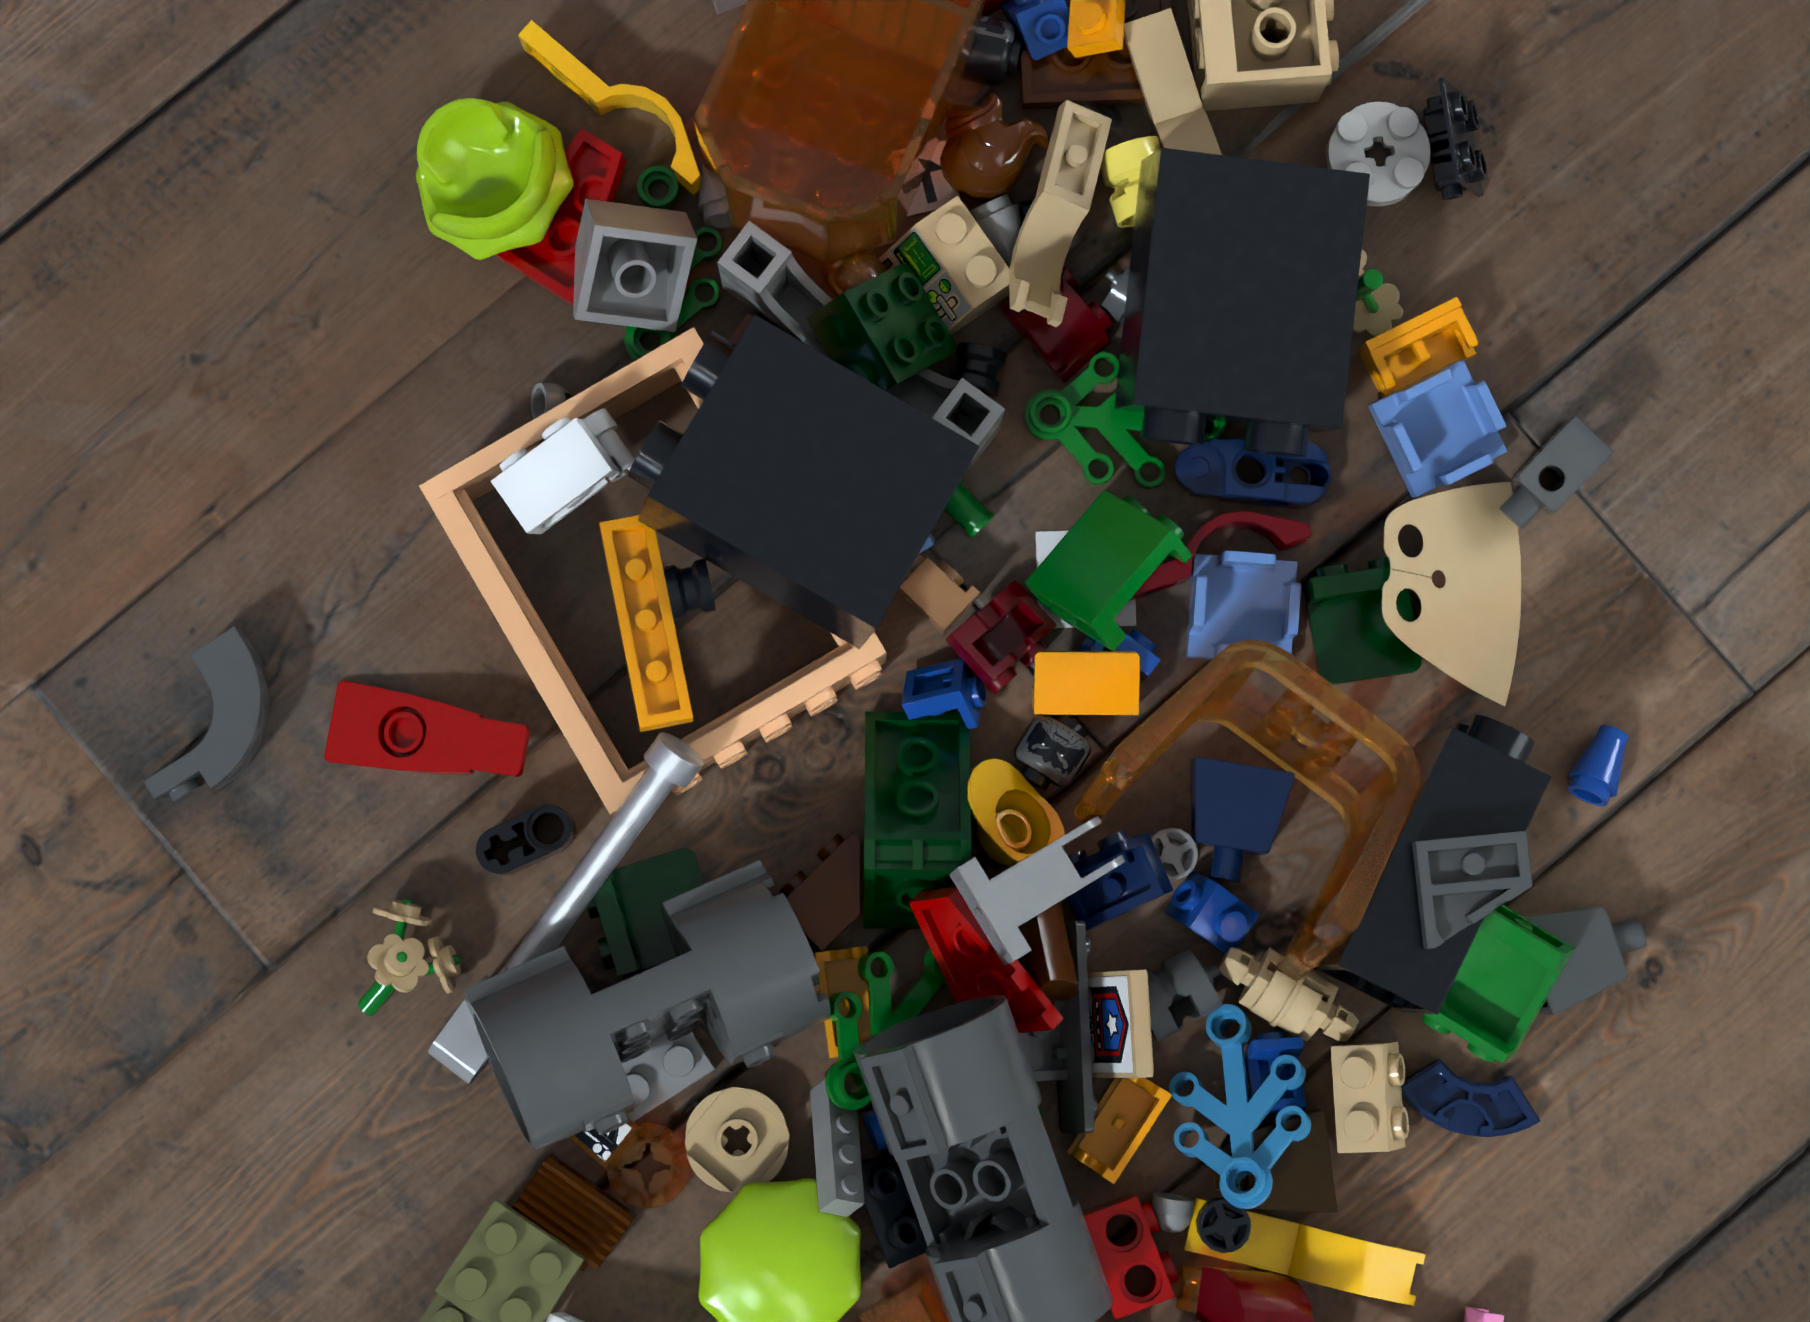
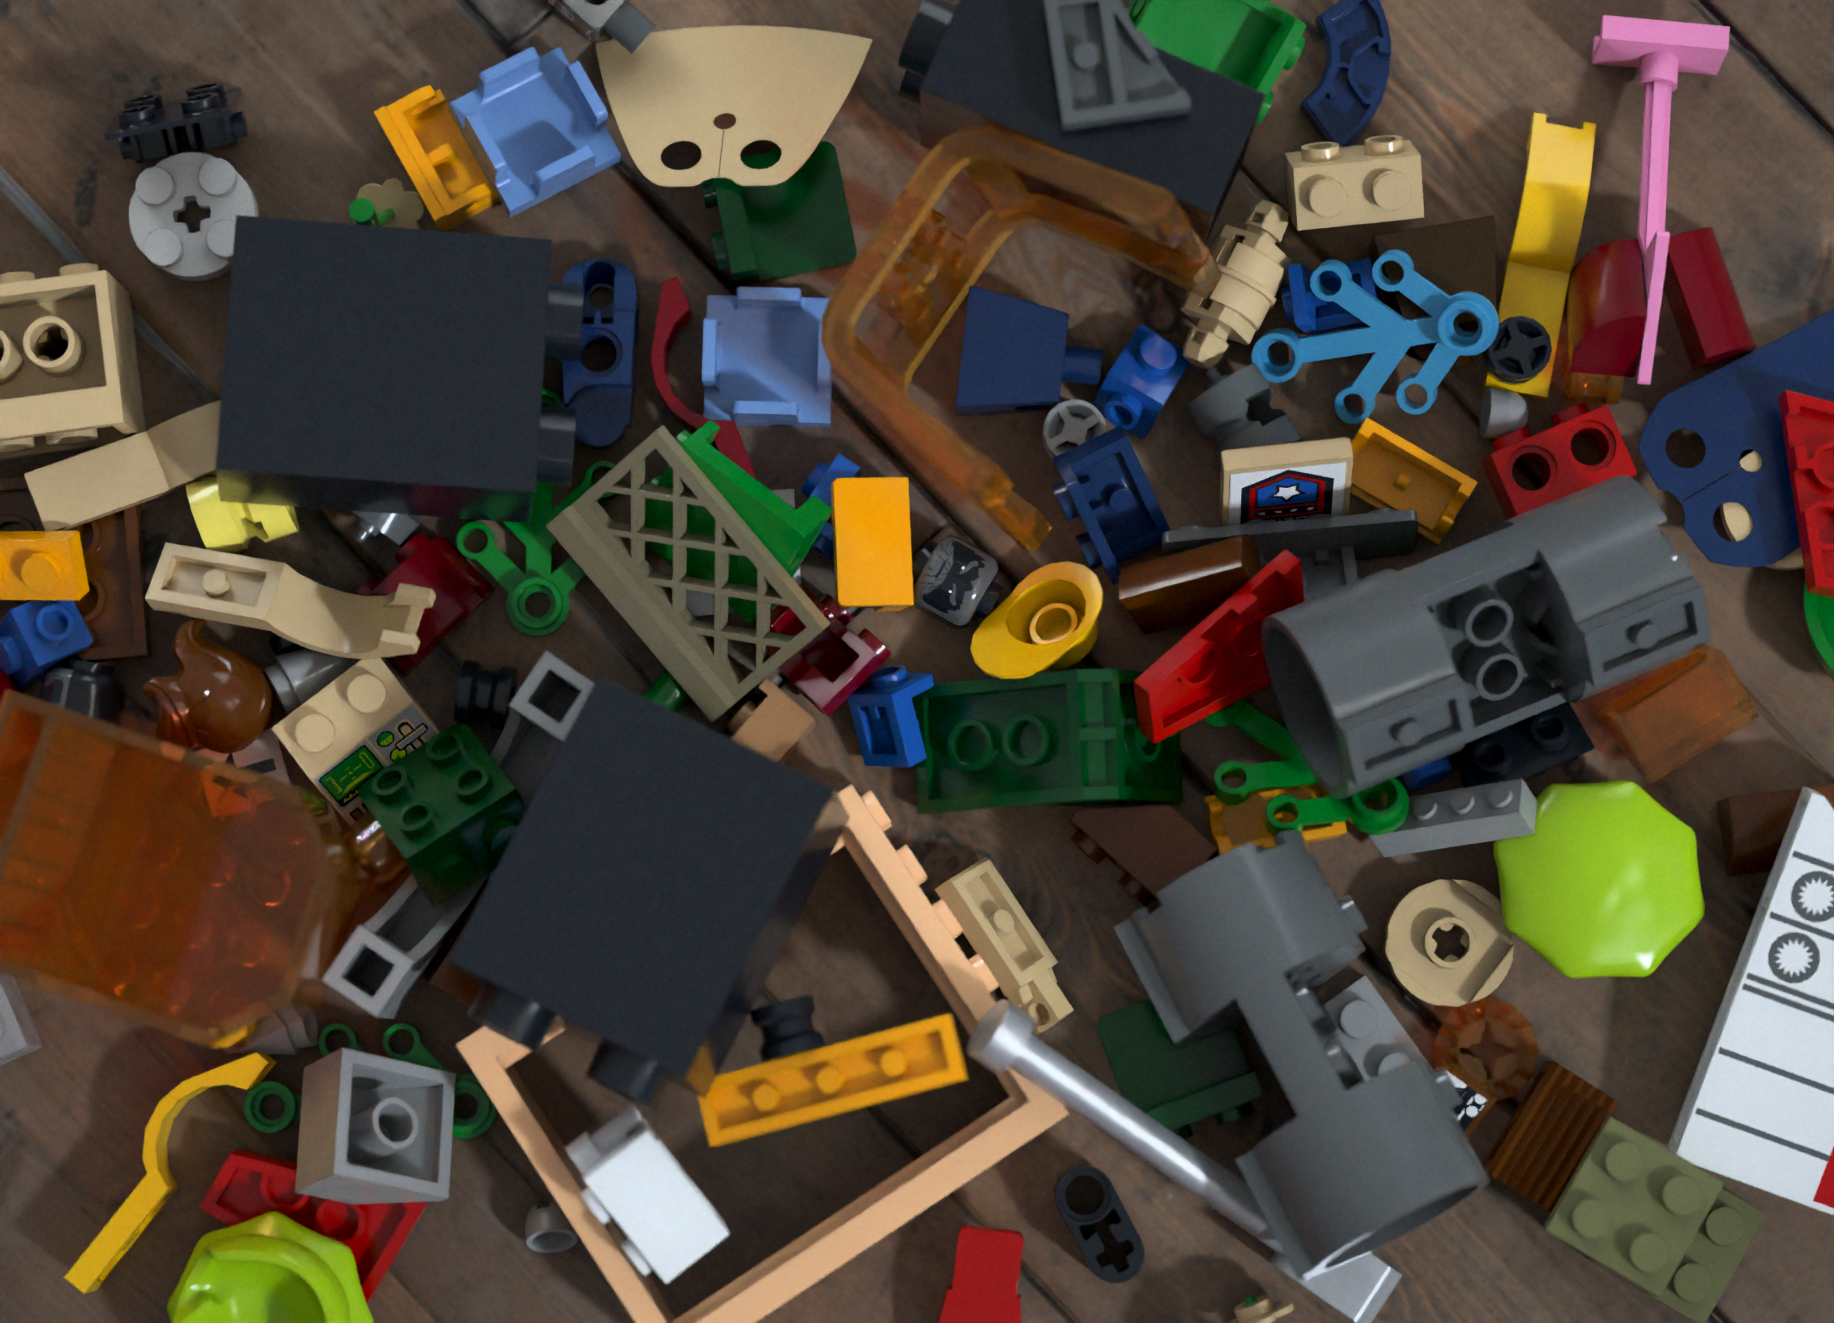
camera: 85 degrees left, 0 degrees up
(756, 777) = (1006, 942): none -> tan hinge
(1023, 891) = (1136, 598): light grey piece -> none
(1046, 506) = (645, 594): none -> dark tan fence

